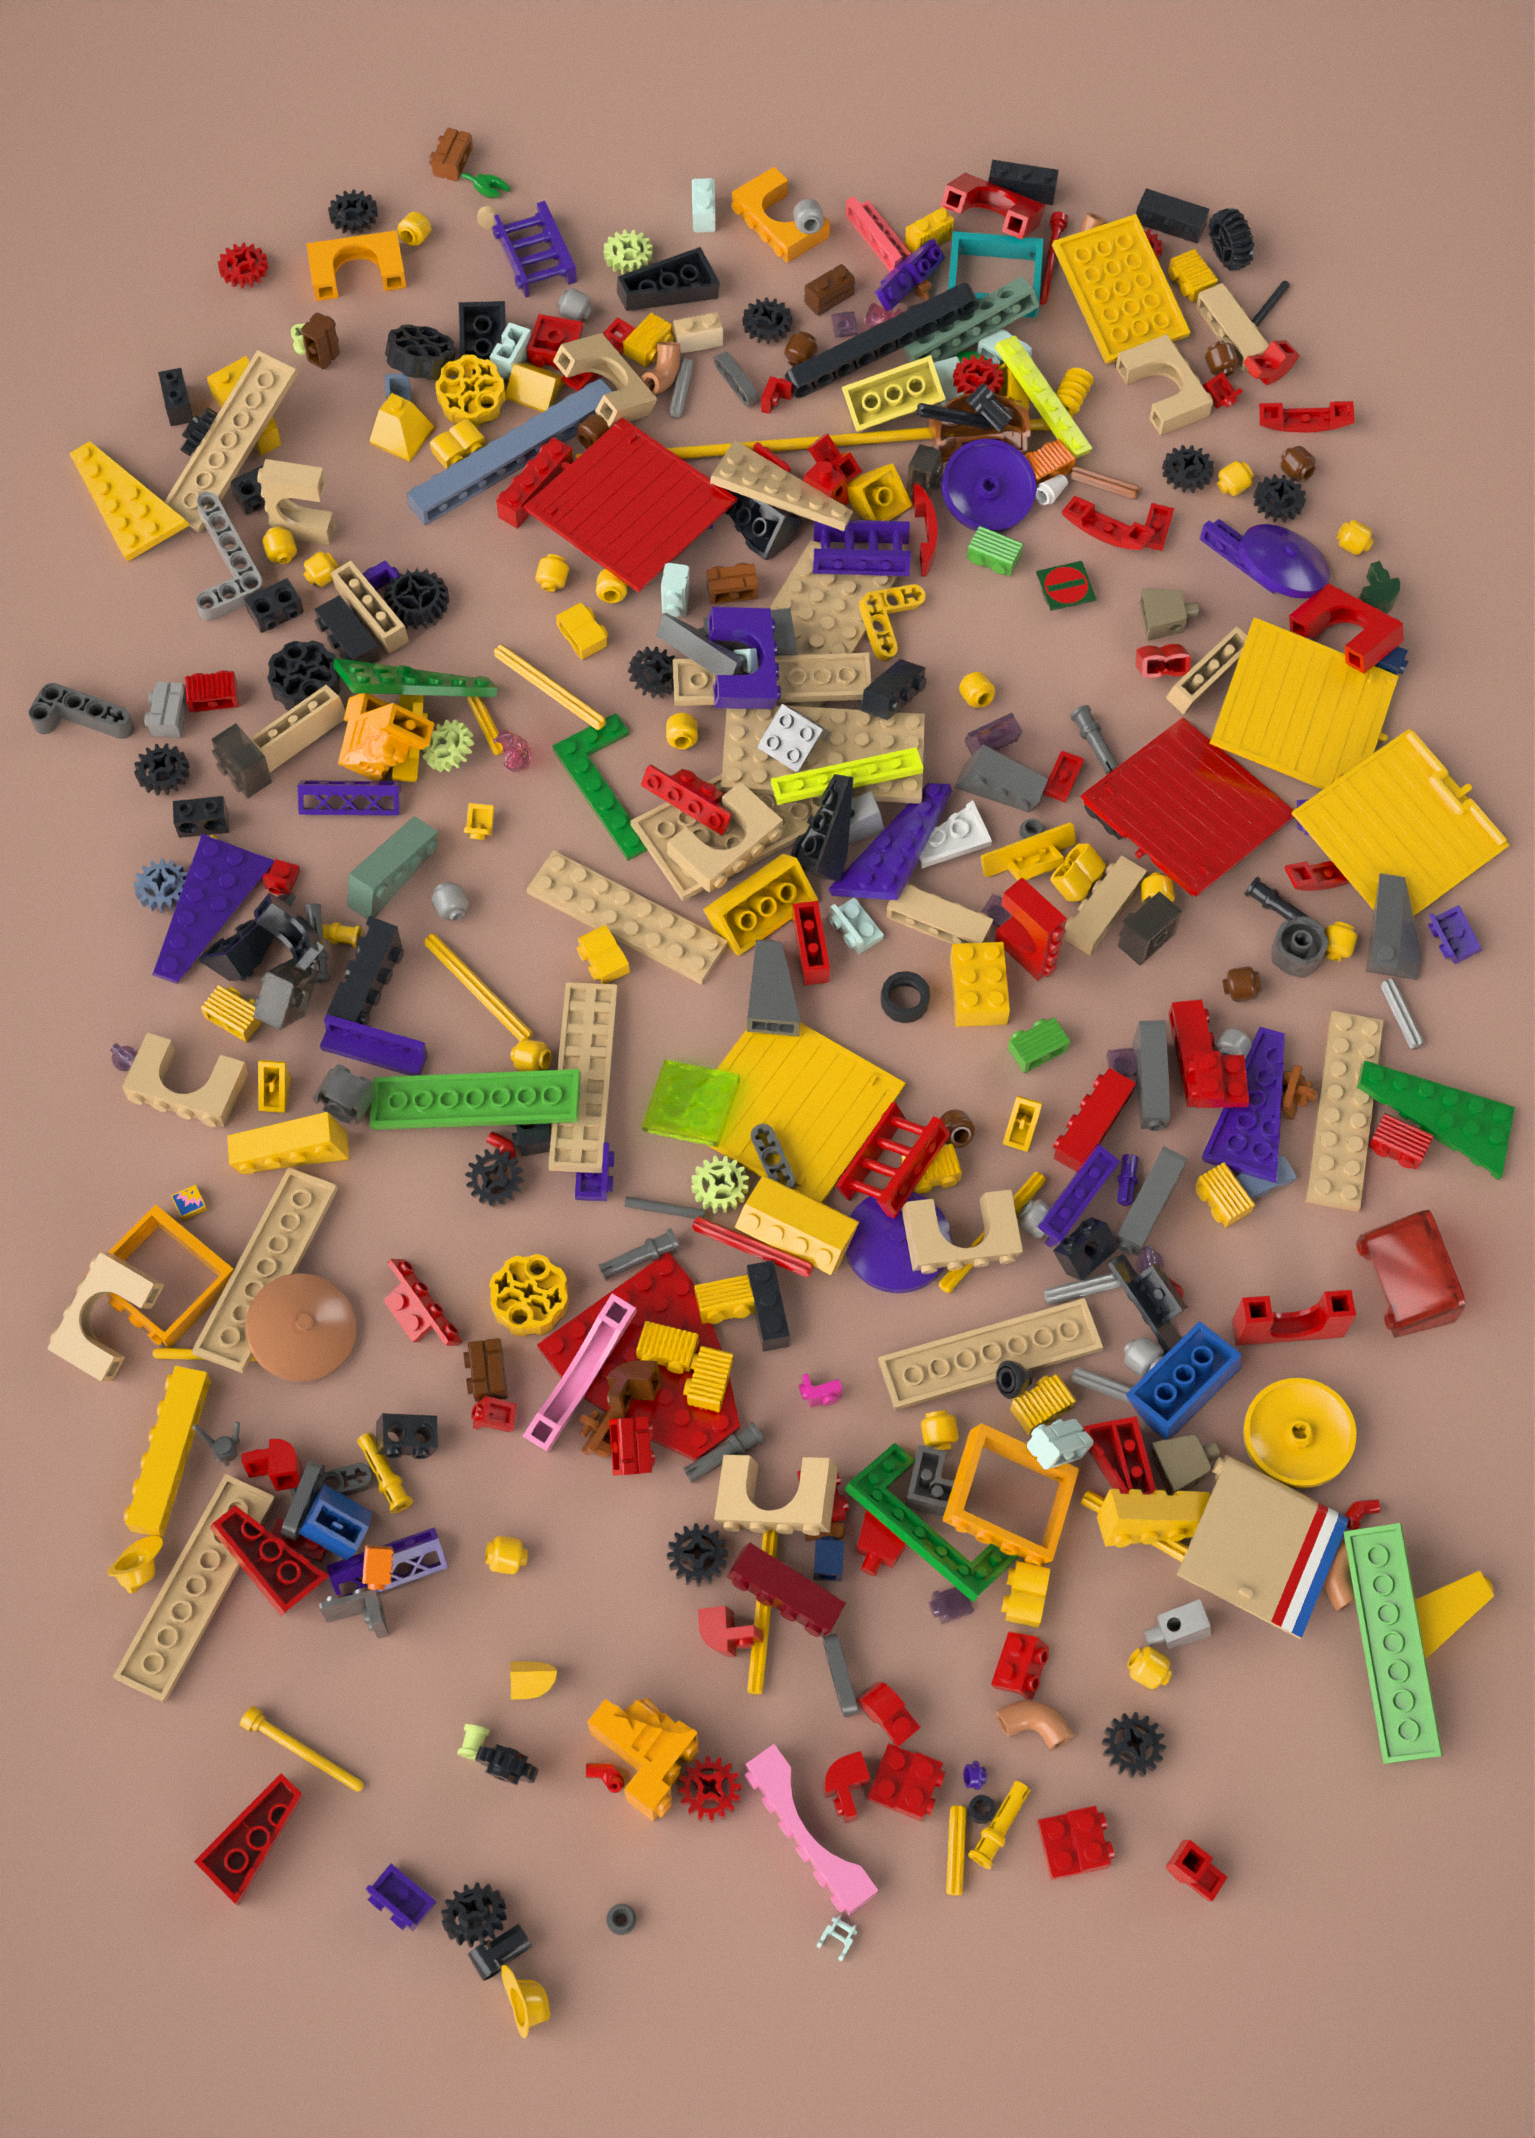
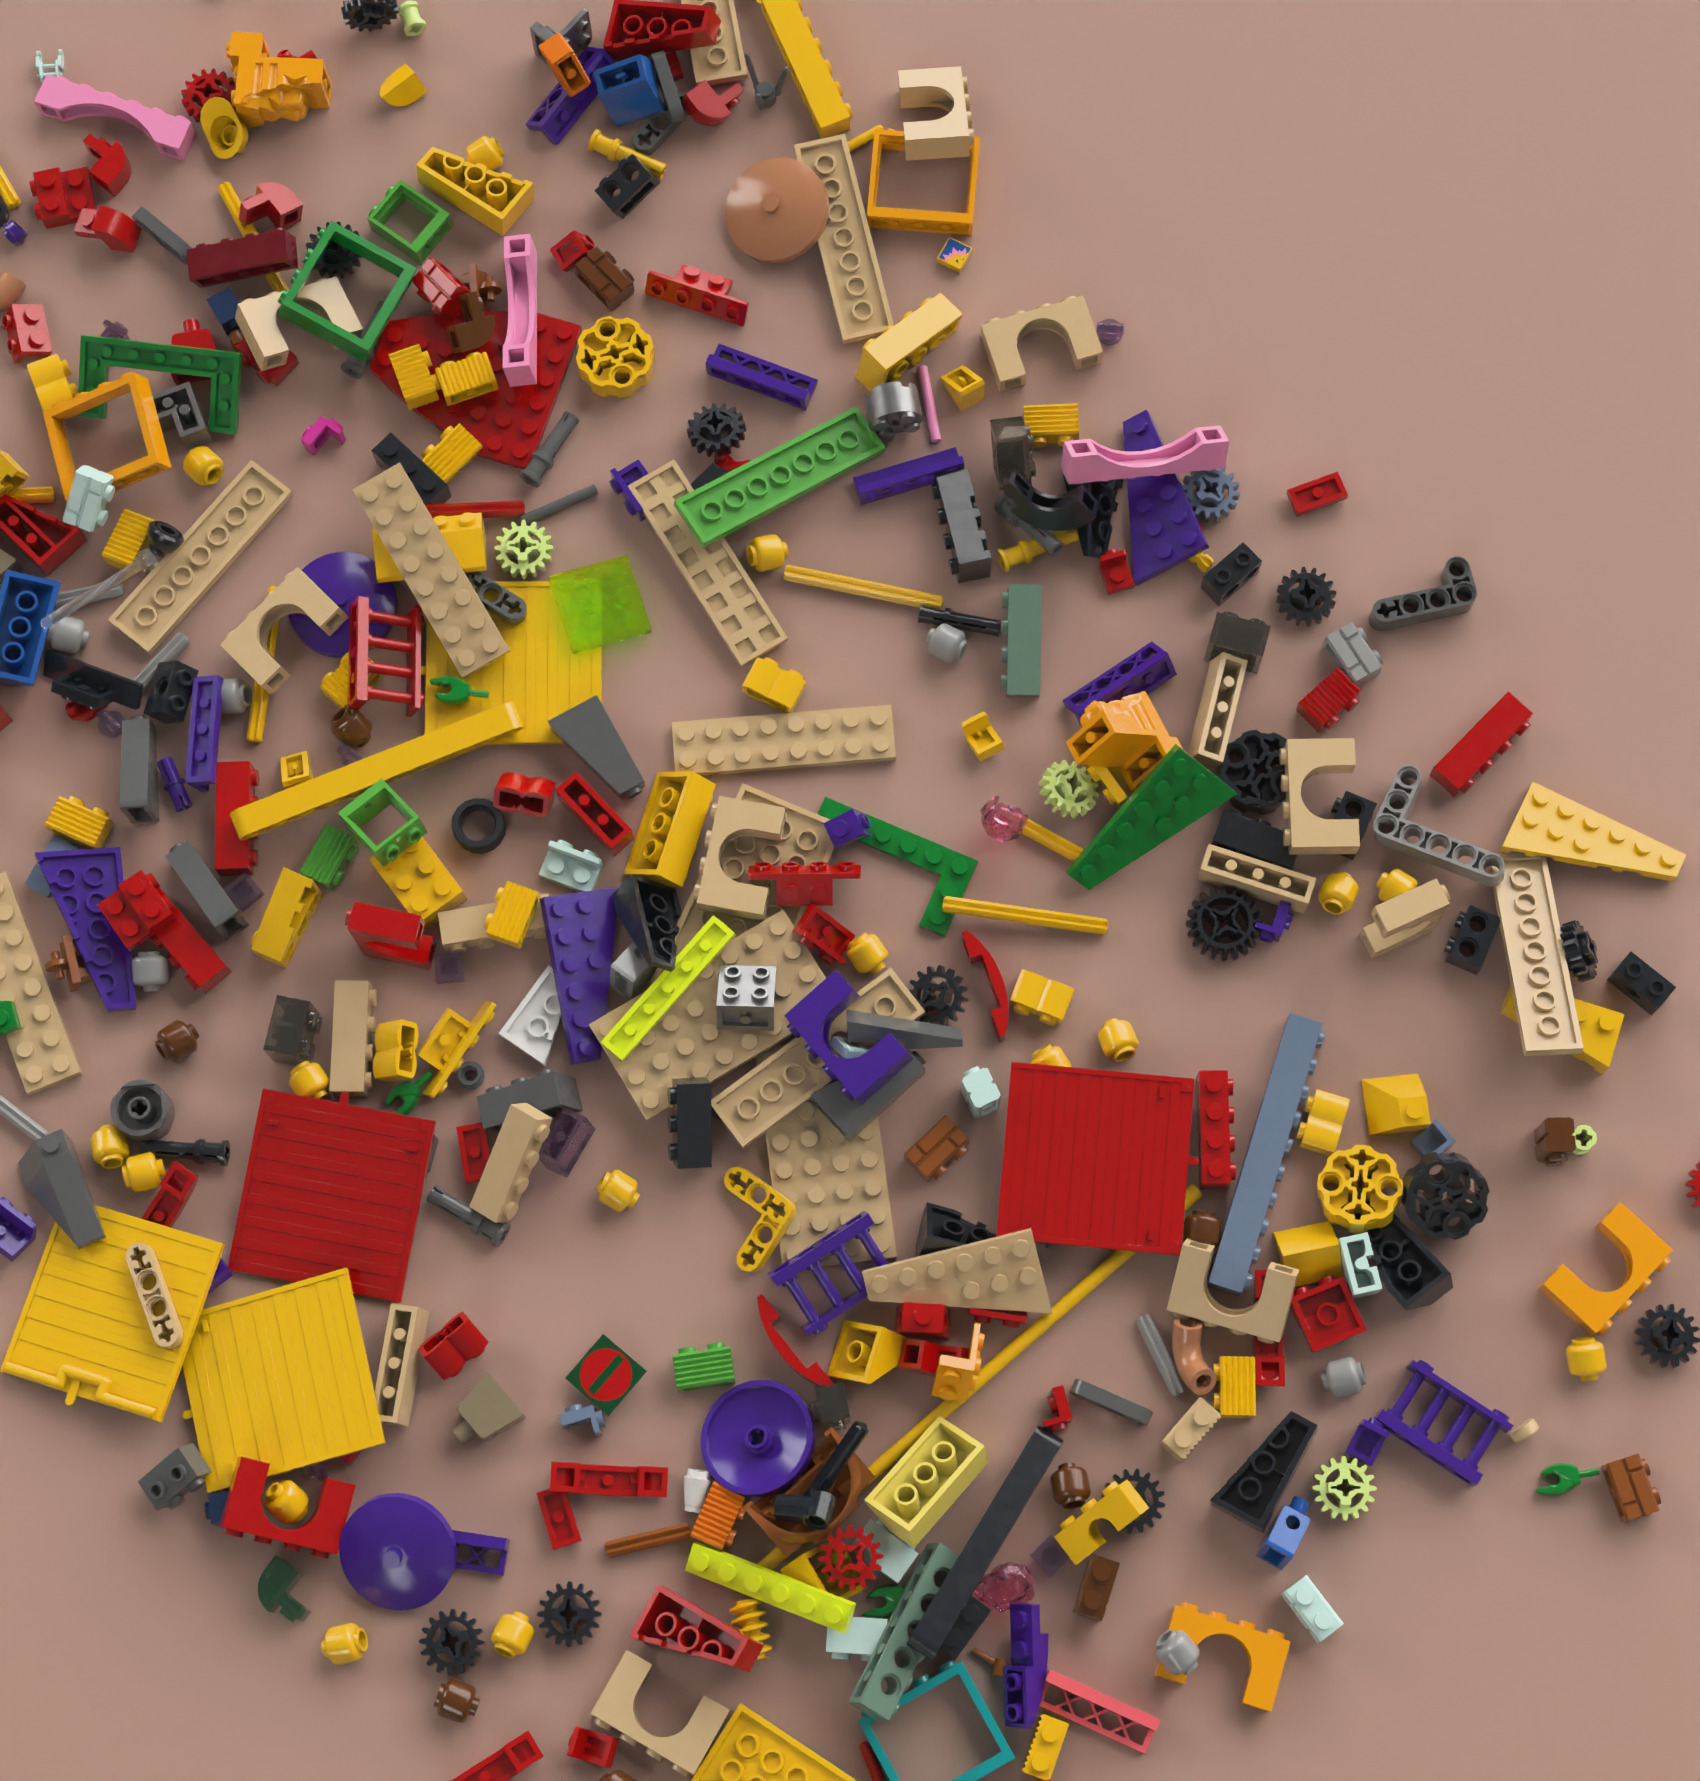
camera: 150 degrees right, 10 degrees up
(85, 835) = (1317, 494): none -> red plate
(135, 599) = (1481, 744): none -> red brick
(190, 915) = (1196, 451): none -> bright pink arch
(274, 646) = (1306, 831): none -> tan arch
(308, 1099) = (929, 404): none -> bright pink bar
(429, 1196) = (761, 381): none -> dark purple fence
(433, 921) = (959, 620): none -> black pin
(533, 1514) = (481, 193): none -> yellow wedge
(591, 267) = (1367, 1441): none -> dark purple bracket
(605, 1510) = (428, 238): none -> bright green window
(618, 637) = (977, 952): none -> red slope
(630, 810) = (847, 828): none -> dark purple bracket
(685, 238) = (1285, 1533): none -> blue torso
(692, 1454) = (327, 330): none -> green window
(707, 756) = (824, 934): none -> red bracket
(720, 1737) = (223, 128): none -> yellow piece
(782, 308) = (1119, 1506): none -> yellow arch
(809, 1198) = (431, 570): none -> tan plate
(815, 428) = (959, 1375): none -> light orange bracket
(851, 1098) = (460, 690): none -> green hand
(854, 991) = (529, 795): none -> red brick
(926, 898) = (512, 915): none -> yellow brick
(959, 1072) = (385, 765): none -> yellow beam
(971, 1106) = (348, 755): none -> plate
(987, 1048) = (377, 799): none -> bright green window
(1042, 1368) = (145, 561): none -> clear piece
(1043, 736) = (511, 1162): none -> tan brick
(1091, 838) = (409, 1093): none -> green hand
(1101, 572) = (577, 1415): none -> sand blue bracket
(1101, 1017) = (286, 917): none -> yellow wedge
(1111, 398) = (686, 1628): none -> red wedge
(1323, 907) = (143, 1172): none -> yellow head
(1341, 633) = (286, 1502): none -> yellow head
(1364, 807) = (150, 1297): none -> tan beam
(1417, 695) = (175, 1477): none -> dark grey brick

